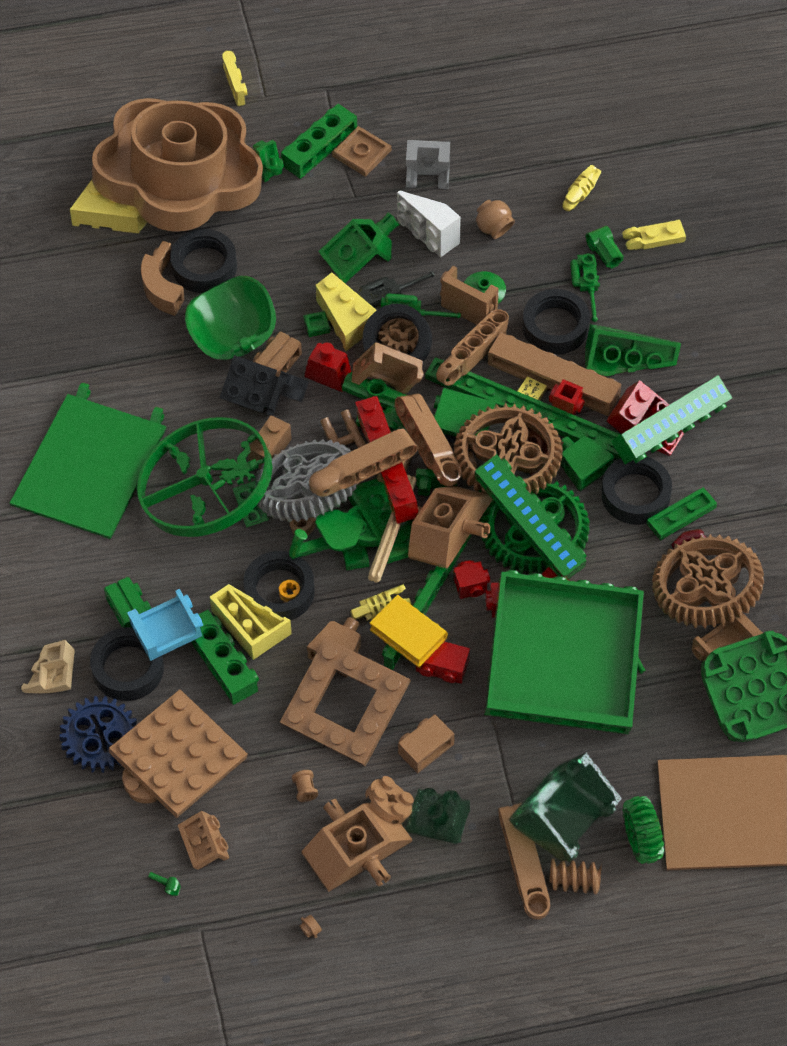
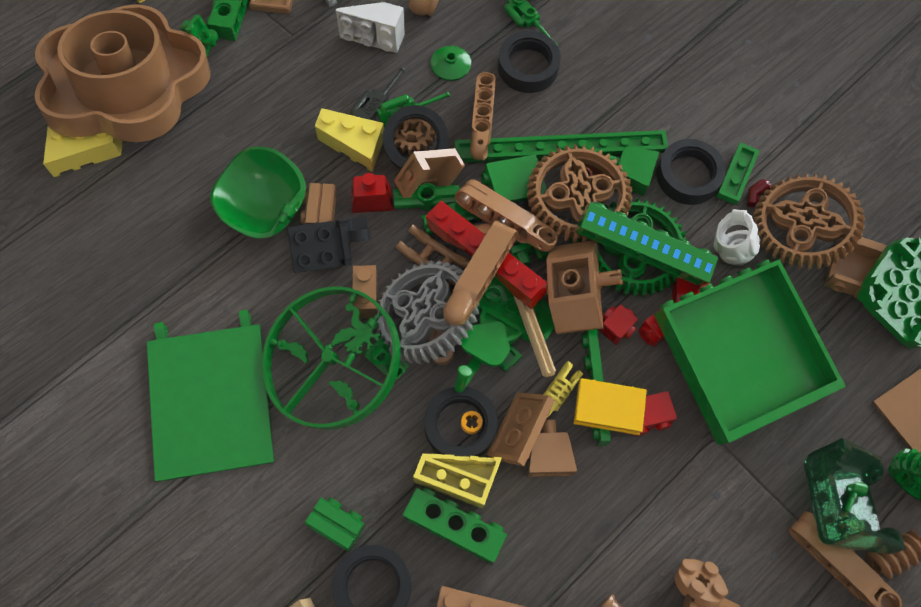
camera: 35 degrees left, 10 degrees up
(160, 292) = (175, 200): medium nougat arch -> none
(166, 626) = (391, 530): medium azure panel -> none
(203, 239) = (193, 129): black tyre -> none
(316, 324) = (332, 160): green tile -> none
(325, 611) = (520, 428): none -> medium nougat plate
(355, 745) = (570, 544): medium nougat plate -> none
(358, 245) = (326, 73): green plate -> none
(425, 743) = (687, 502): medium nougat brick -> none
(438, 815) = (744, 567): clear green slope -> none
(465, 299) = (449, 77): medium nougat panel -> none
(532, 388) = (548, 127): light yellow tile -> none
(545, 367) = (559, 106): medium nougat brick -> none
(567, 397) = (586, 120): red brick -> none
(578, 807) = (855, 490): none -> green hand
(620, 351) = (595, 61): green wedge -> none
(629, 572) = (737, 246): none -> white helmet
(636, 406) = (655, 107): red slope -> none
(672, 419) = (683, 99): brick -> none

